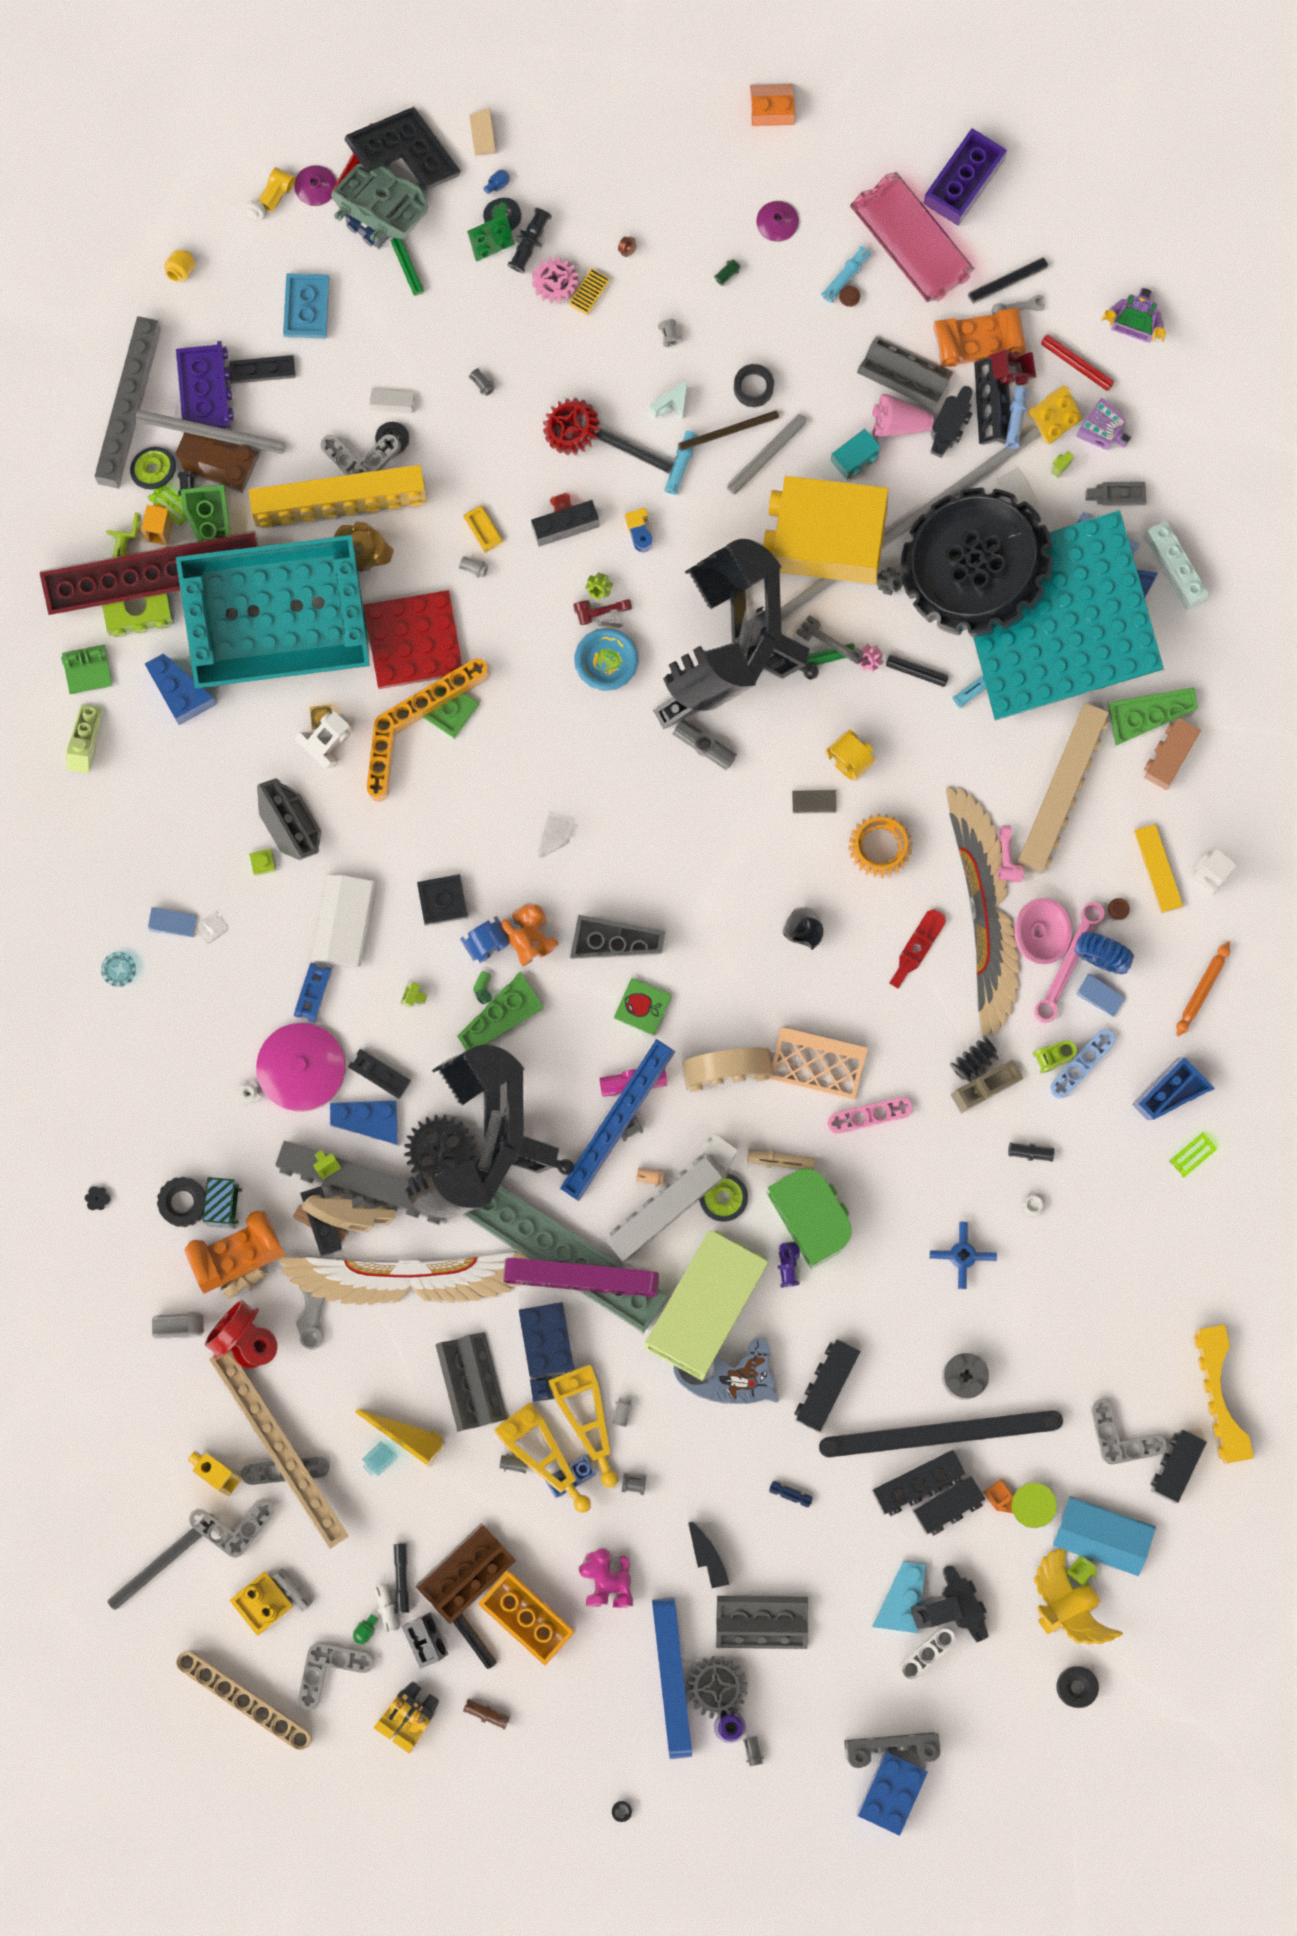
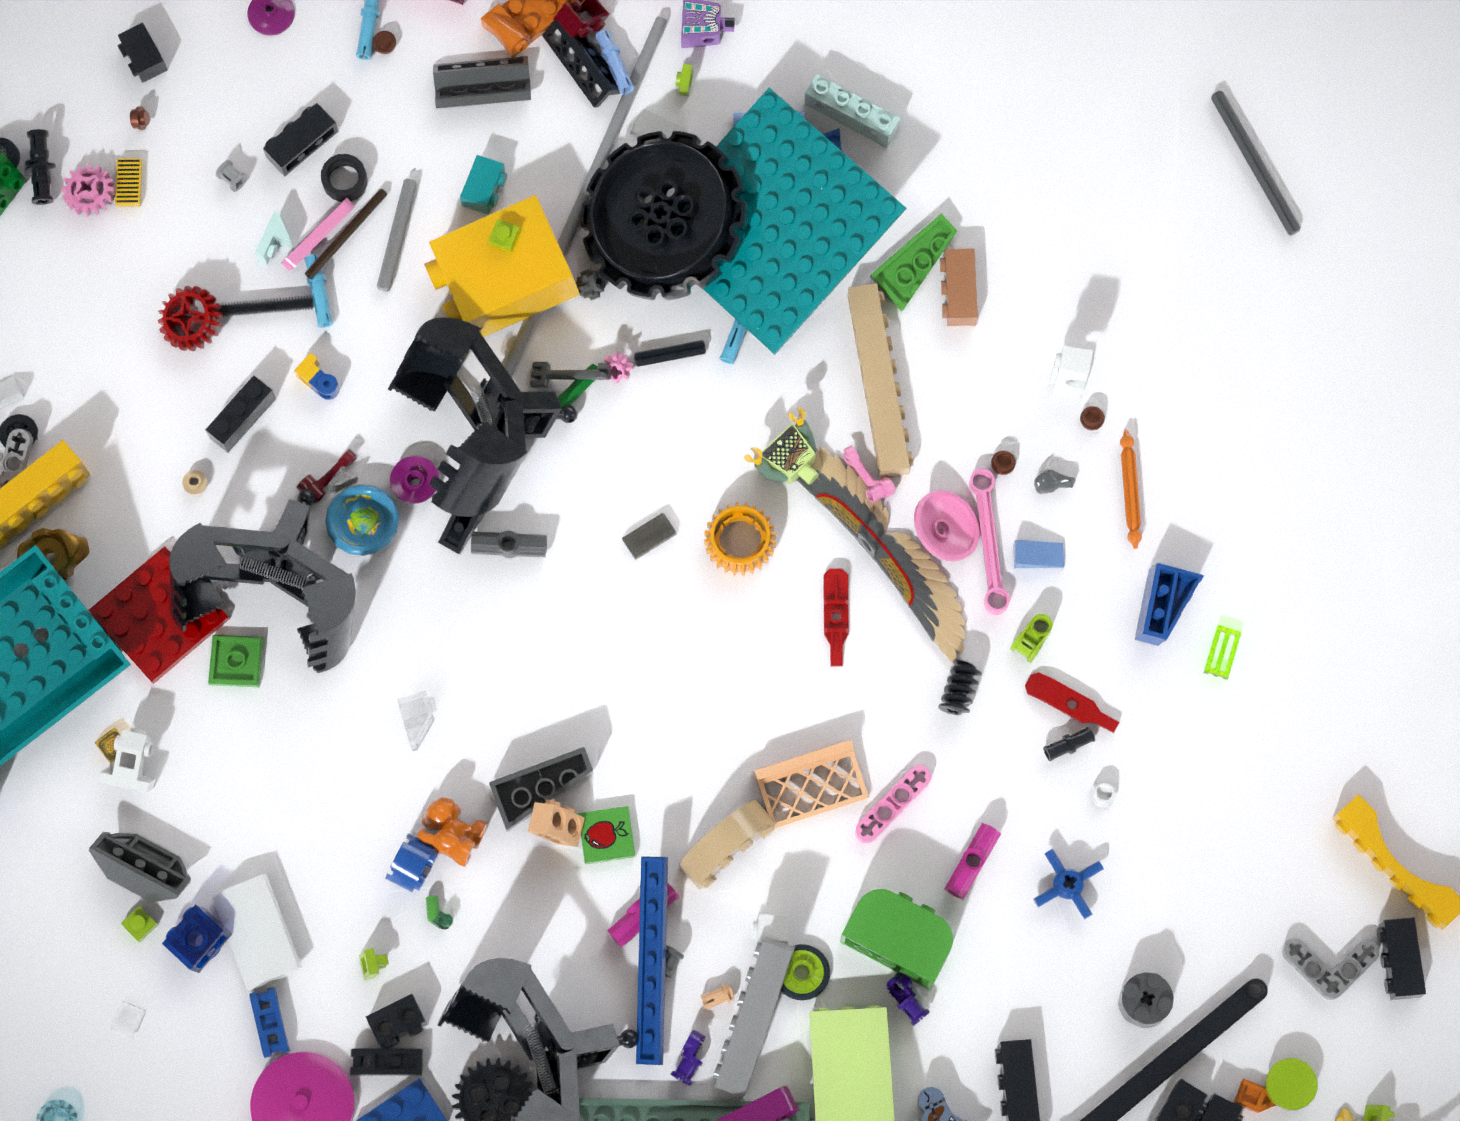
camera: 30 degrees left, 5 degrees down
(171, 922) = (83, 1040): medium blue slope -> none
(286, 892) = (182, 938): none -> clear blue brick
(406, 1043) = (394, 1014): none -> black brick
(415, 713) = (205, 686): light orange beam -> none
(442, 900) = (343, 851): black plate -> none
(473, 566) = (175, 509): light grey pin -> none
(483, 528) = (162, 467): yellow tile -> none
(486, 387) = (76, 328): dark grey pin -> none
(500, 561) = (194, 489): none -> tan plate
(506, 1011) = (475, 921): bright green wing -> none
(516, 646) = (331, 602): none -> black piece
(562, 498) = (224, 391): clear red plate -> none
(598, 1211) = (689, 1062): none -> dark purple connector
(599, 585) = (311, 454): lime gear -> none
(609, 976) = (556, 823): none -> light nougat brick
(660, 195) = (142, 52): none -> black brick
(660, 642) = (409, 469): none -> magenta dish
(707, 418) = (317, 234): none -> bright pink beam
(727, 272) = (252, 87): dark green pin -> none
(738, 335) = (300, 139): none -> black brick
(780, 1160) = (825, 905): tan pin -> none
(804, 927) = (716, 662): black piece -> none
(844, 505) = (504, 235): none -> lime plate
(851, 755) = (657, 469): yellow brick -> none
(898, 418) = (503, 126): bright pink cone -> none
(914, 1187) = (965, 875): none -> dark pink piece
(950, 421) = (553, 101): black hinge -> none
(958, 803) = (789, 454): none -> torso
(986, 1086) = (987, 707): dark tan slope -> none
(1046, 1110) = (1057, 695): none -> red piece
(1055, 414) = (650, 37): yellow plate -> none
(1084, 1065) = (1065, 630): light blue beam -> none
(1104, 953) = (1018, 510): blue gear -> none
(1104, 1536) = (1376, 1071): dark azure slope -> none
(1117, 493) = (754, 77): dark grey hinge -> none
(1146, 945) = (1051, 480): none -> animal
(1158, 868) = (1016, 402): yellow tile -> none
(1209, 916) = (1092, 418): none -> copper plate

